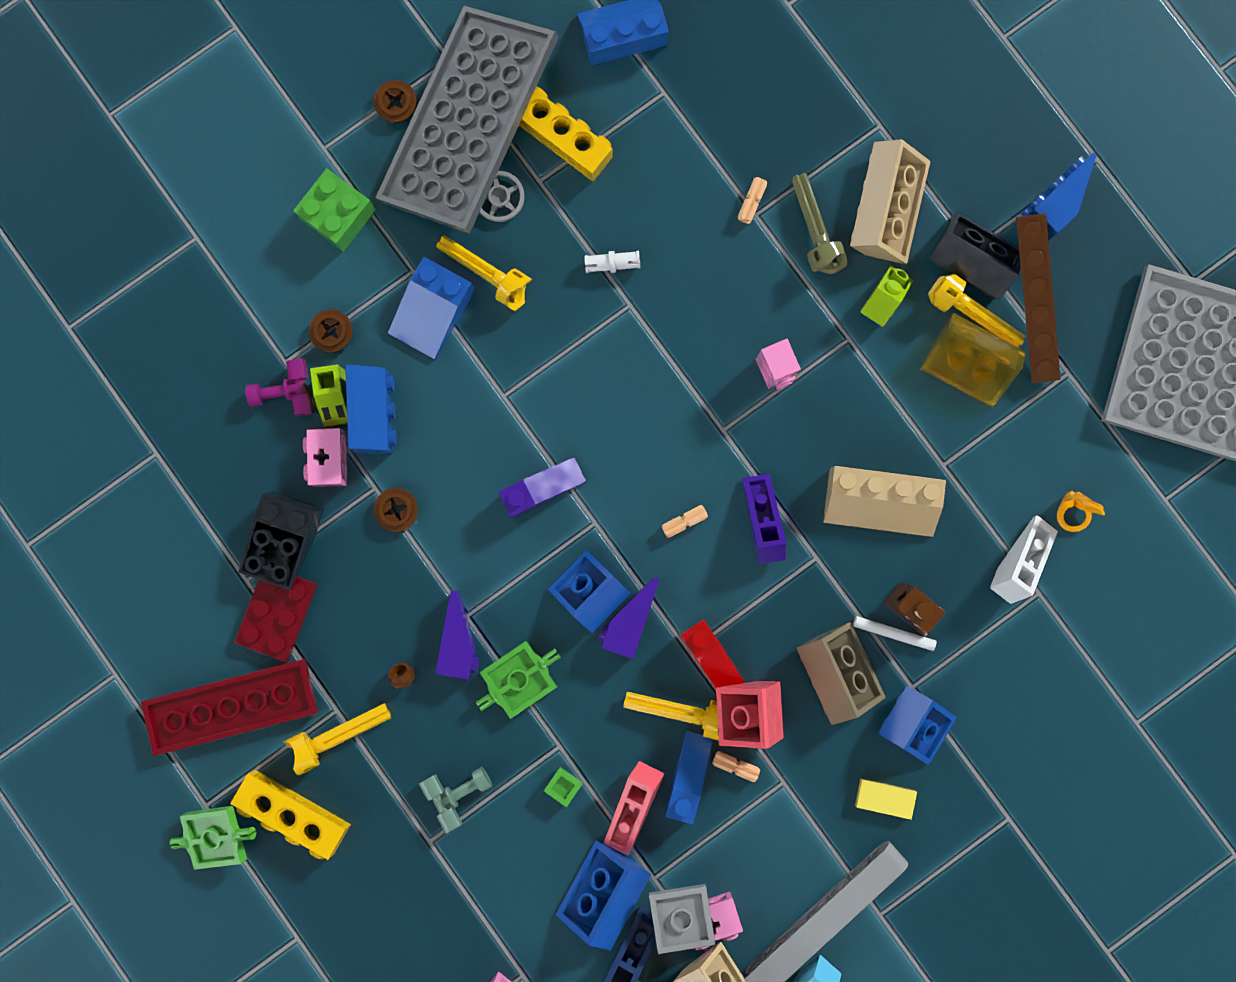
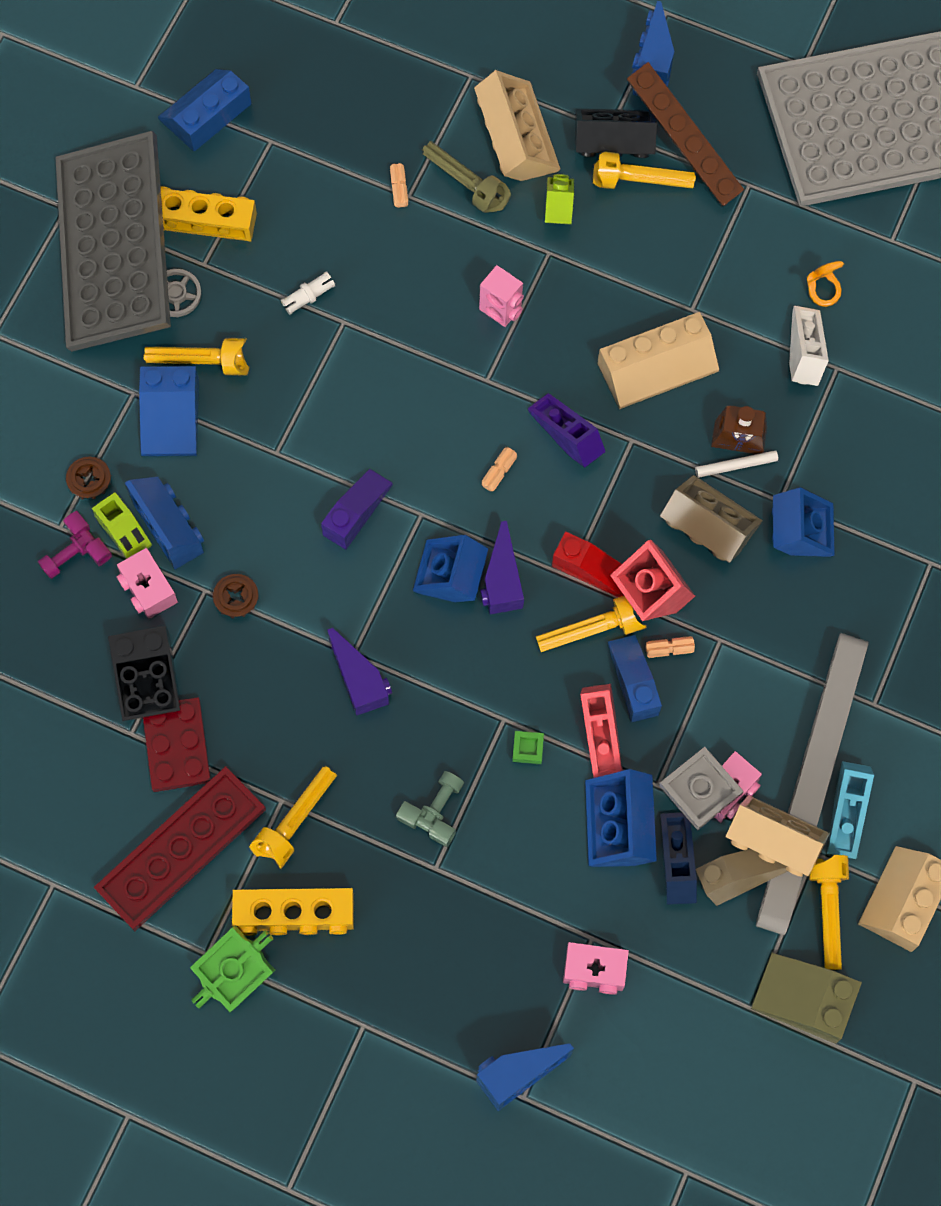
camera: 35 degrees left, 15 degrees down
(334, 210) = (35, 374): bright green brick -> none
(396, 90) = (32, 254): reddish brown gear -> none
(401, 675) = (324, 732): reddish brown plate -> none
(518, 679) = (432, 678): bright green plate -> none
(885, 798) = (815, 602): light yellow tile -> none
(974, 360) = (663, 213): clear yellow slope -> none

